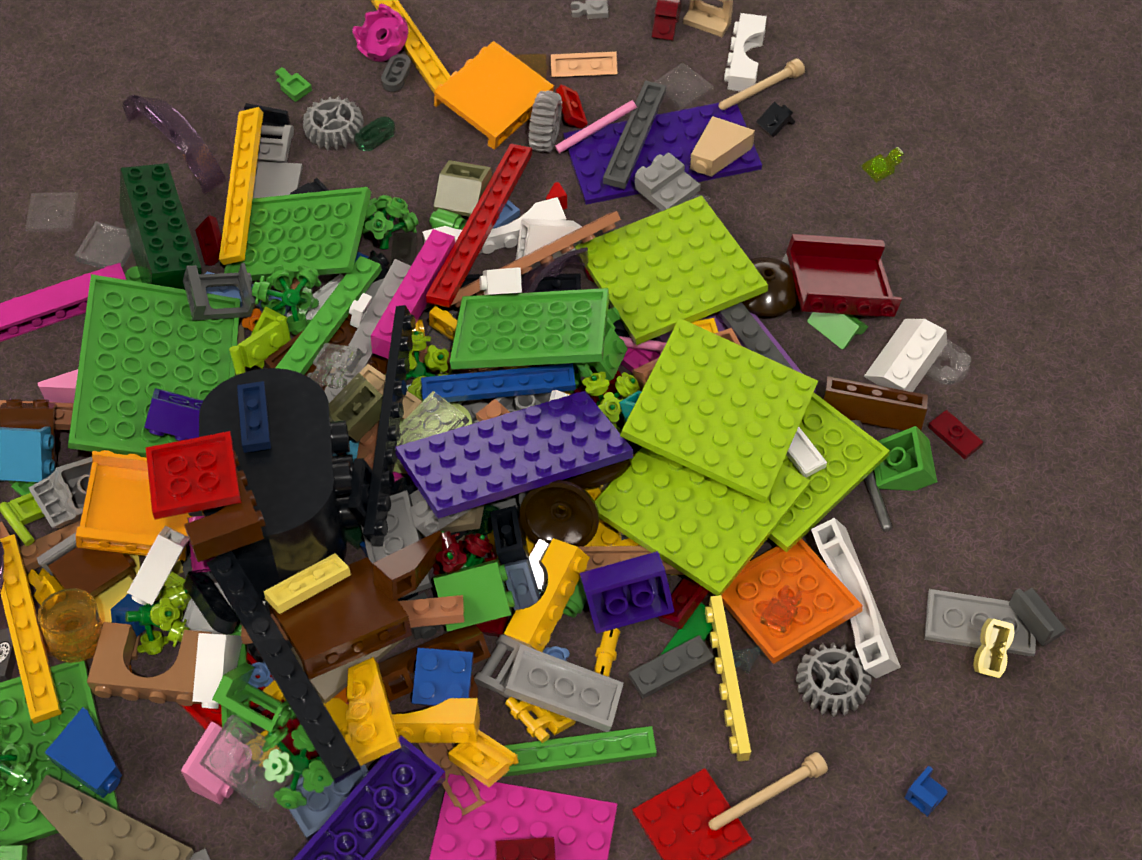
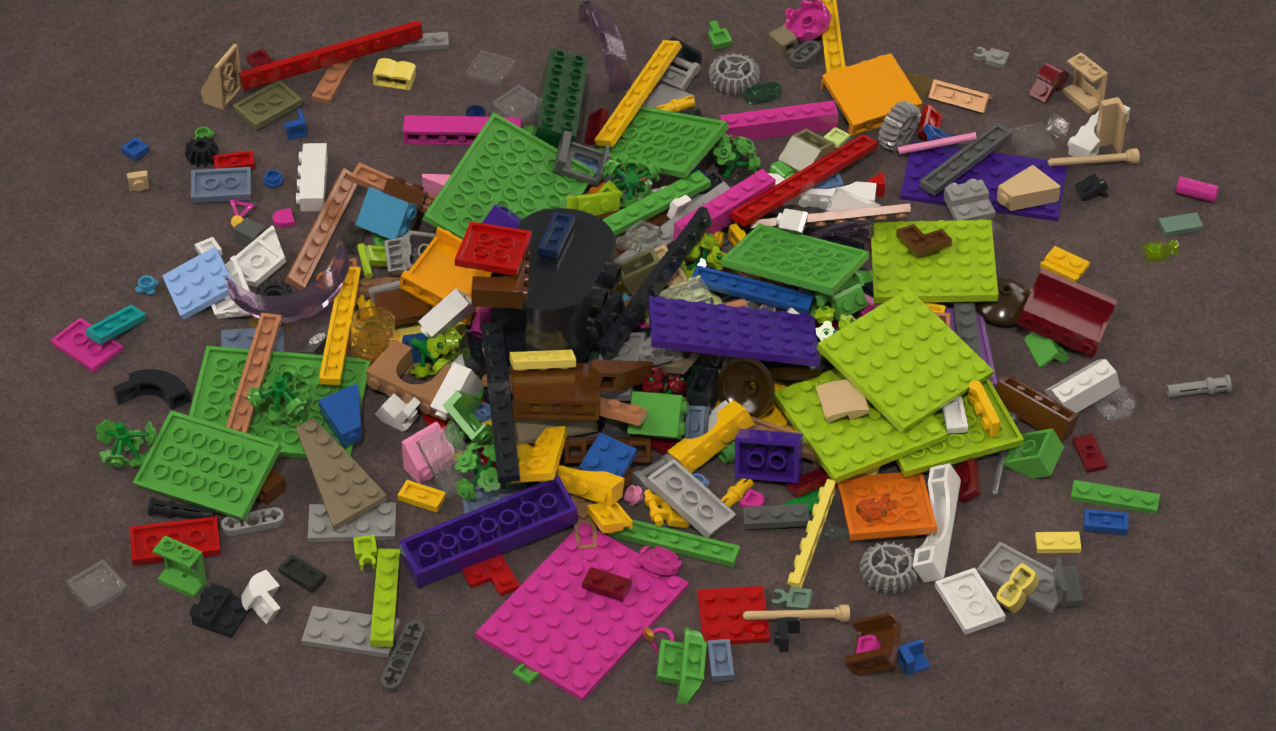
camera: 25 degrees right, 10 degrees down
(67, 273) = (475, 111): none -> clear blue plate
(149, 717) = (397, 413): none -> white brick
(234, 824) = (422, 496): none -> yellow plate
(291, 182) = (678, 105): none -> yellow pin
(366, 66) = (782, 41): none -> dark tan brick
(415, 159) = (782, 121): none -> dark pink brick
(481, 156) = (838, 137): none -> yellowish green tile
(491, 708) = (634, 495): none -> bright pink plate
(569, 790) = (659, 560): none -> dark pink tile
(586, 116) = (935, 133): none -> blue plate
(630, 654) = (751, 499): none -> dark pink tile
(651, 254) = (923, 244): none -> reddish brown plate
(678, 489) = (841, 399): none -> tan slope
(701, 62) = (1057, 126): none -> clear plate
(754, 769) = (794, 600): none -> sand green plate
(764, 829) = (784, 627): none -> black bracket
(766, 39) = (1111, 123): none -> tan panel
(798, 217) = (1065, 264): none -> yellow plate
(832, 432) = (984, 408): none -> yellow plate
(857, 526) = (969, 480): none -> dark red plate
(871, 801) = (867, 643): none -> dark pink tile
(880, 82) = (1197, 189): none -> dark pink axle
(880, 796) = (887, 631): none -> reddish brown panel
(885, 127) = (1180, 224): none -> sand green tile
(943, 683) = (970, 601): none -> white plate
(988, 562) = (1058, 542): none -> light yellow plate
(1013, 478) = (1115, 497): none -> bright green plate
(1024, 514) = (1105, 521): none -> blue plate
(1026, 303) = (1208, 386): none -> light grey pin

